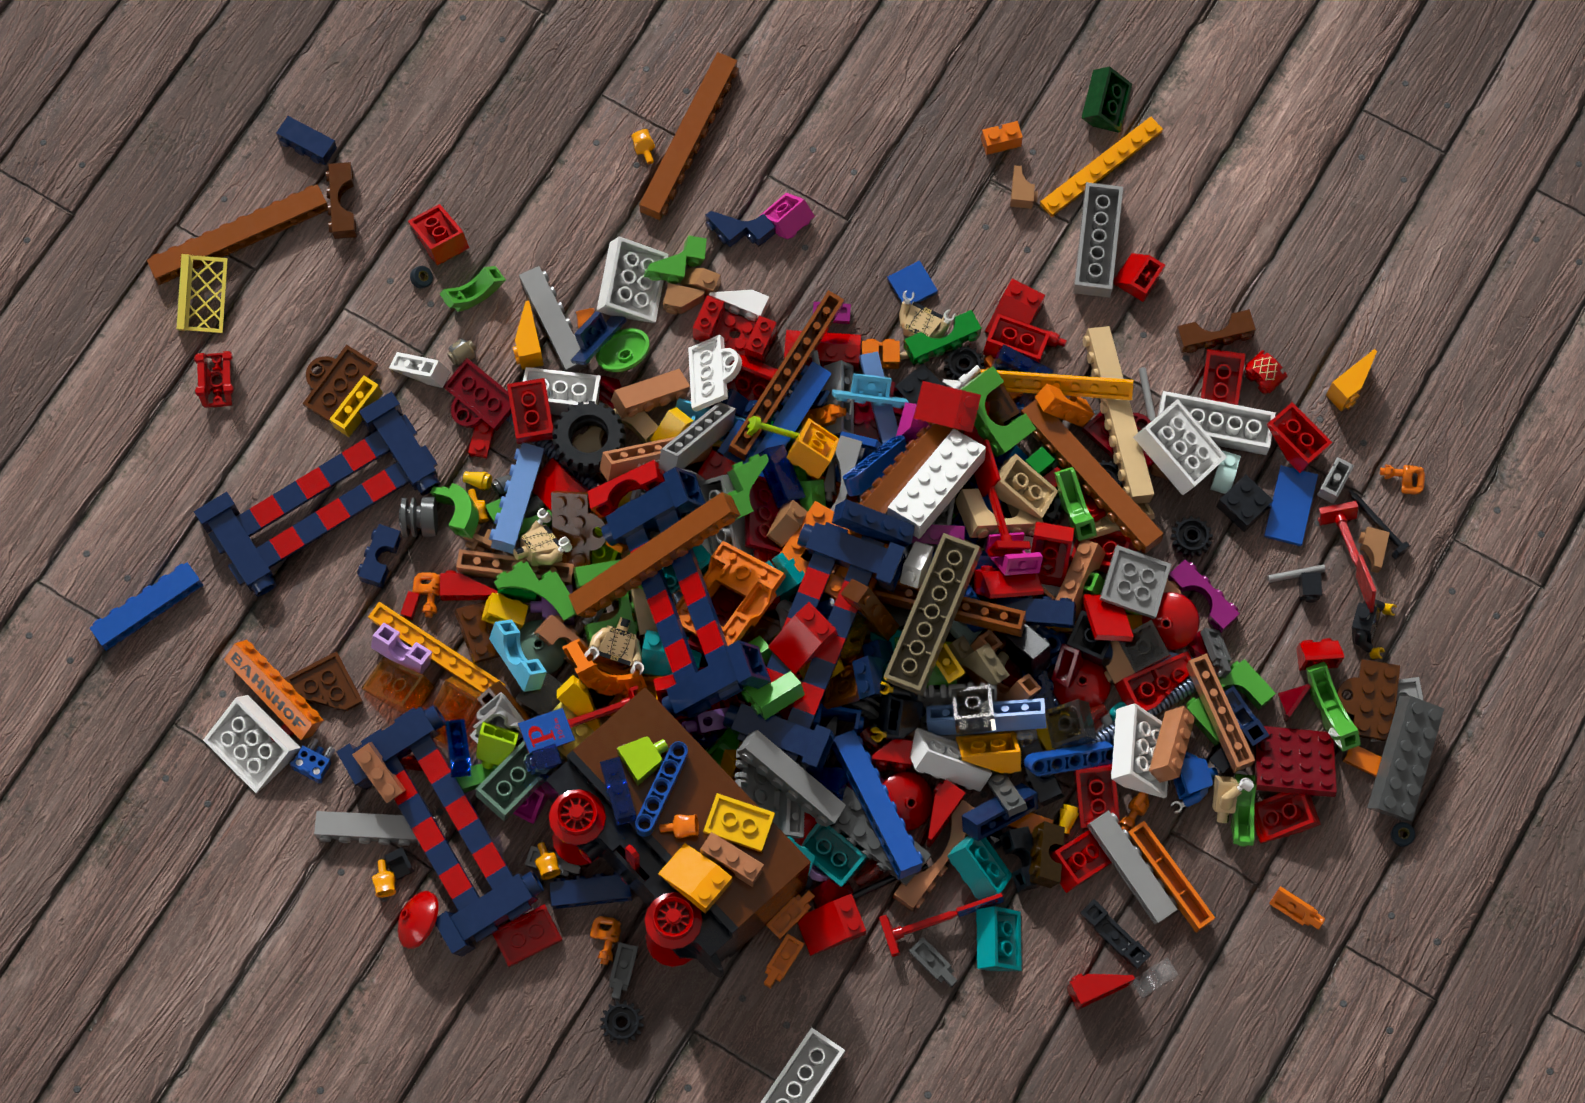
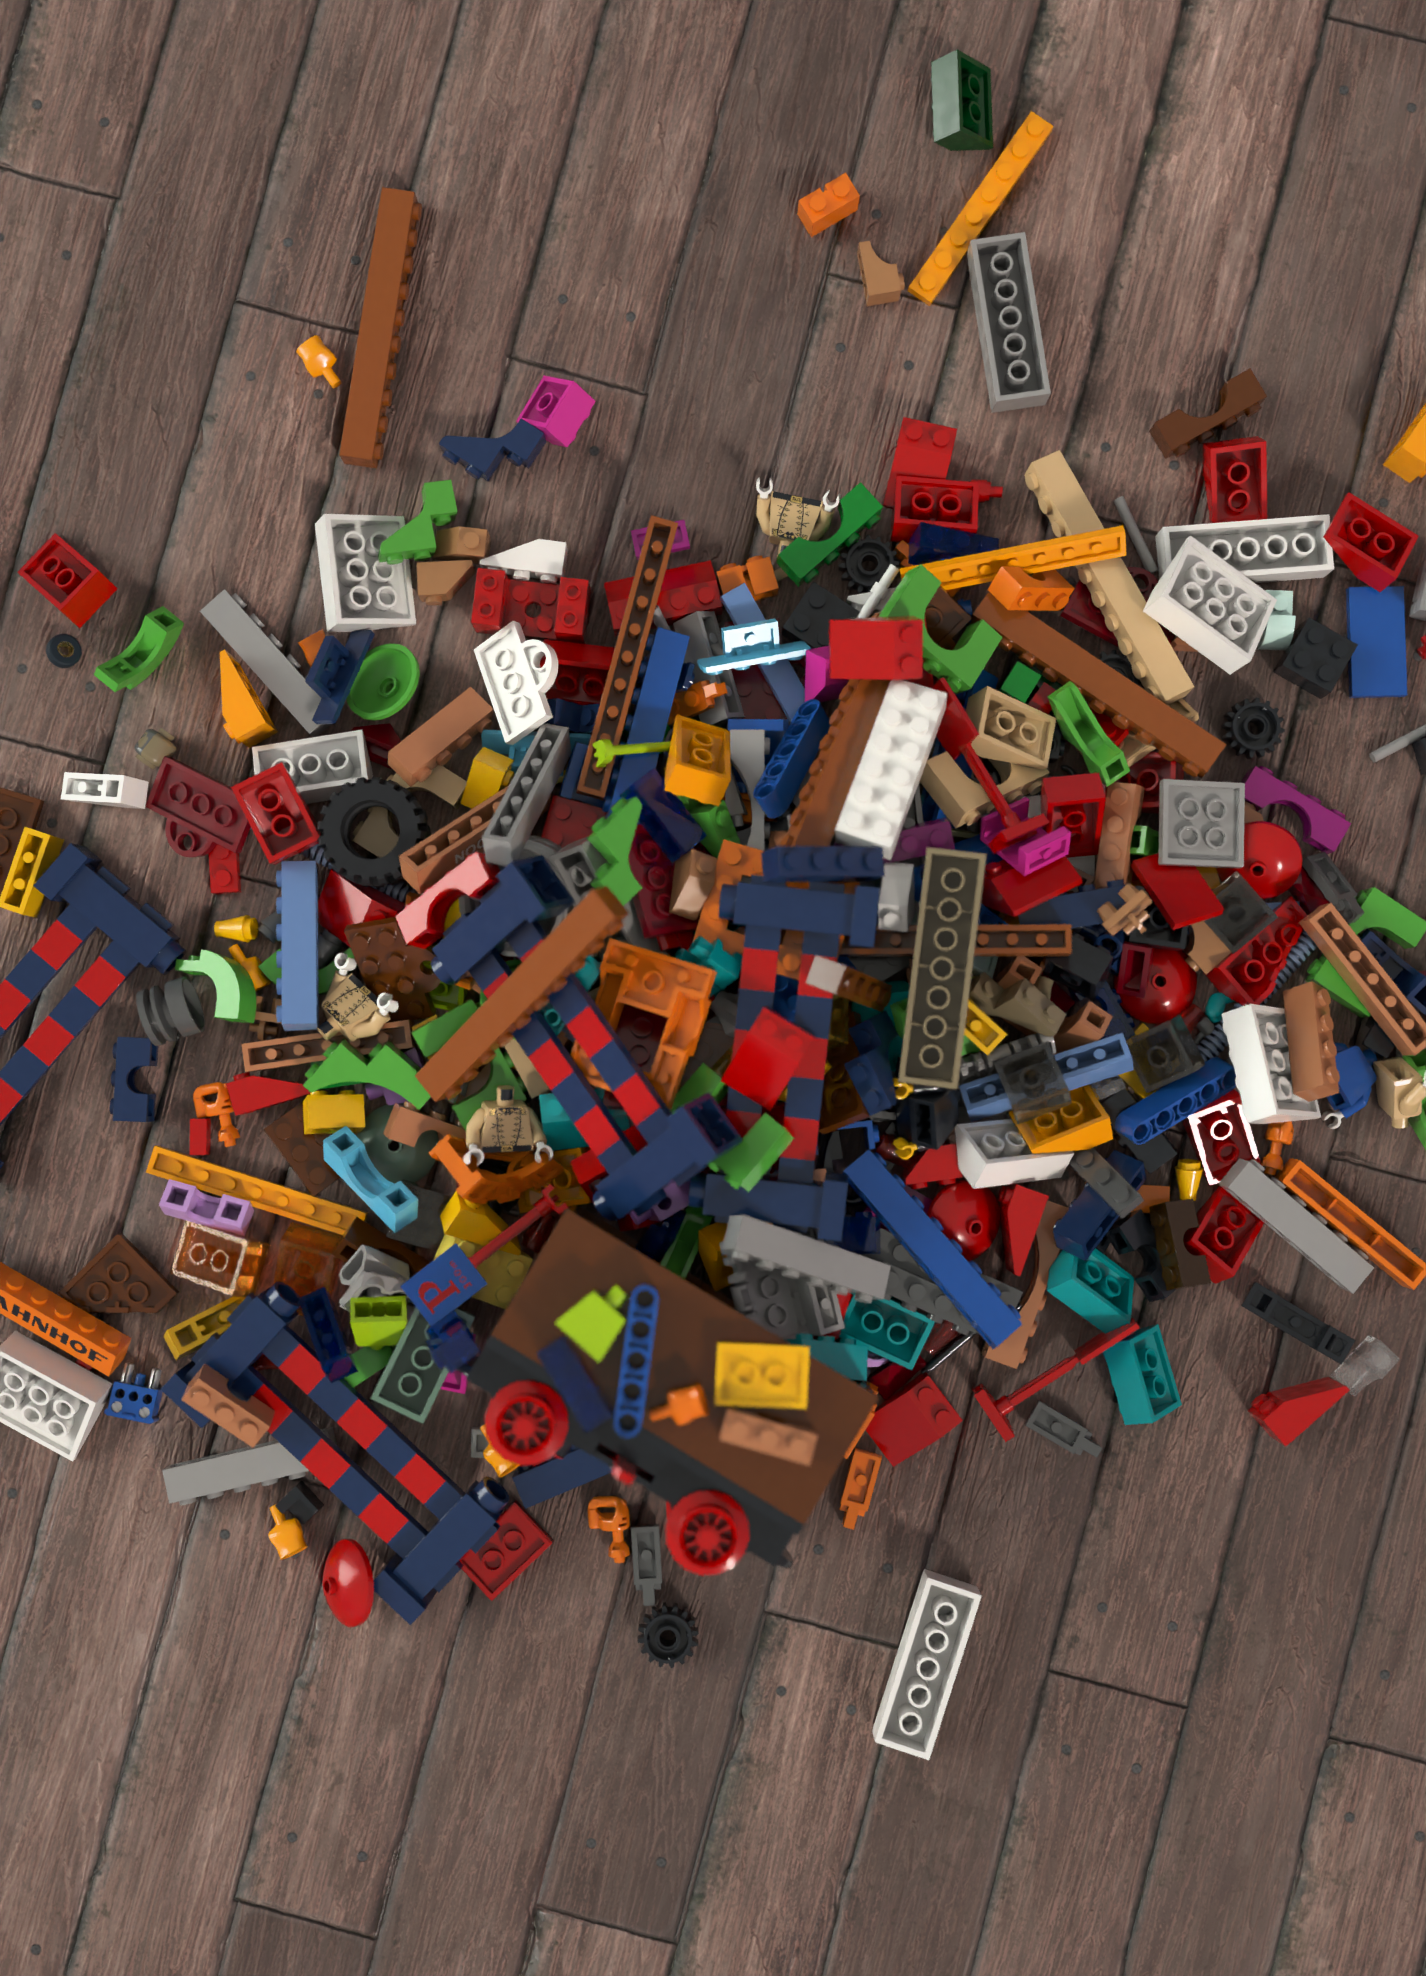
camera: 15 degrees left, 15 degrees up
(362, 727) = (195, 1331): none -> yellow slope
(696, 877) = (723, 1475): light orange slope -> none
(913, 279) = (763, 458): blue tile -> none
(1066, 617) = (1128, 914): none -> medium nougat hips
(1139, 275) = (1080, 359): red slope -> none
(1265, 372) = (1296, 456): red brick -> none

